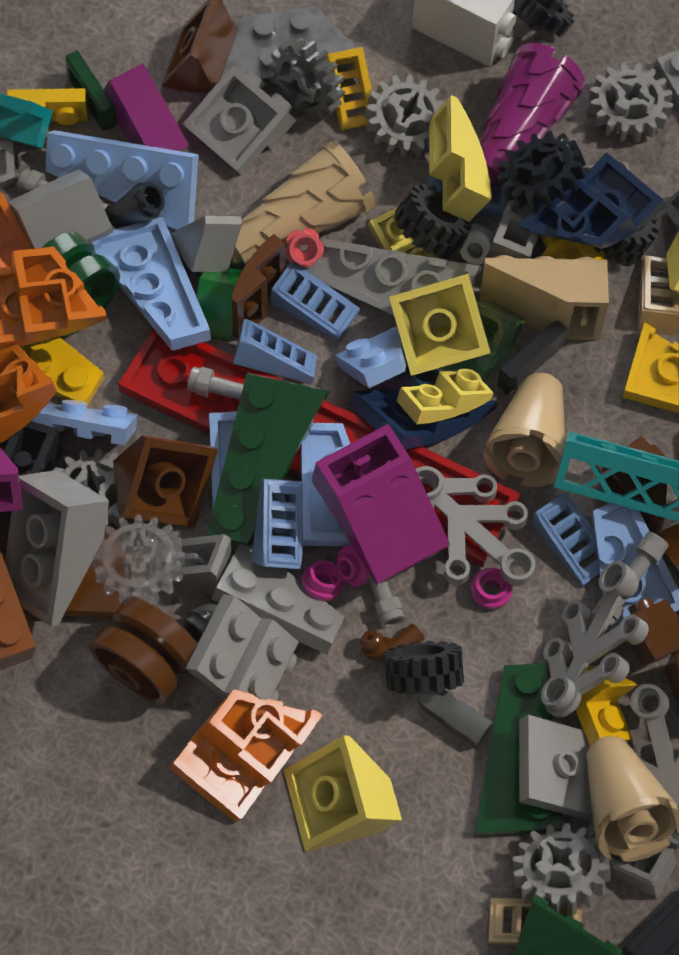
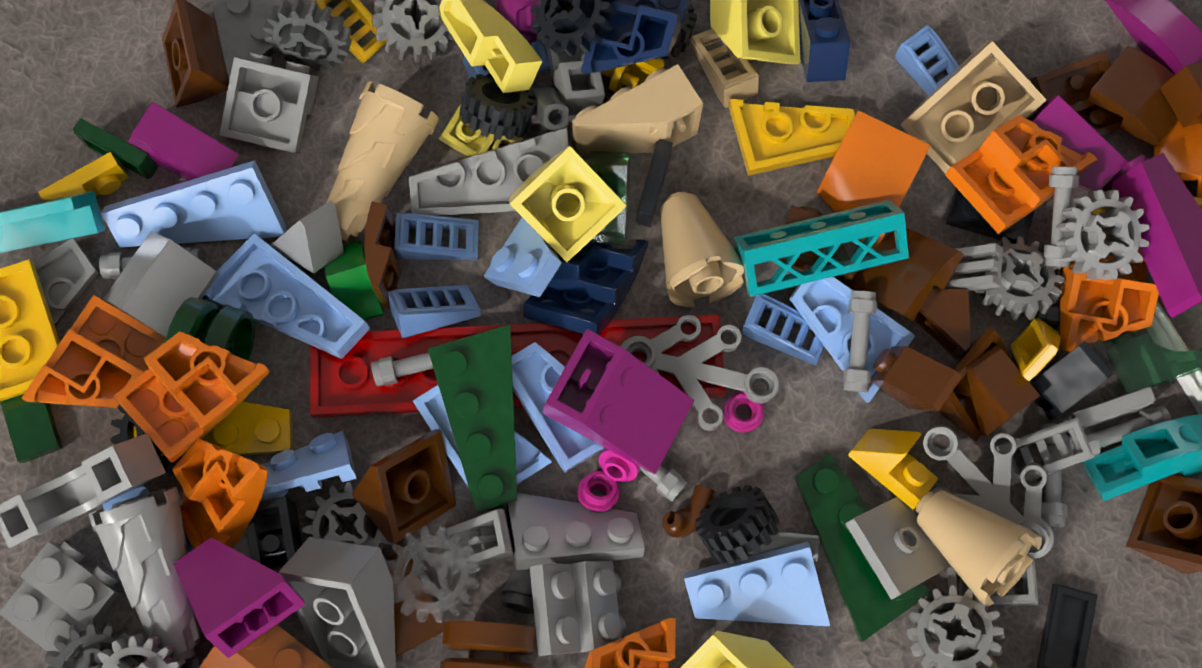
camera: 30 degrees left, 10 degrees up
(137, 205) = (226, 236): black cone -> none
(293, 537) = (555, 477): medium blue slope -> none
(304, 258) = (408, 201): coral plate -> none
(414, 737) = (764, 588): none -> light blue wing
(449, 397) = (609, 264): light yellow slope -> none
(565, 687) = (864, 423): light grey plant -> none

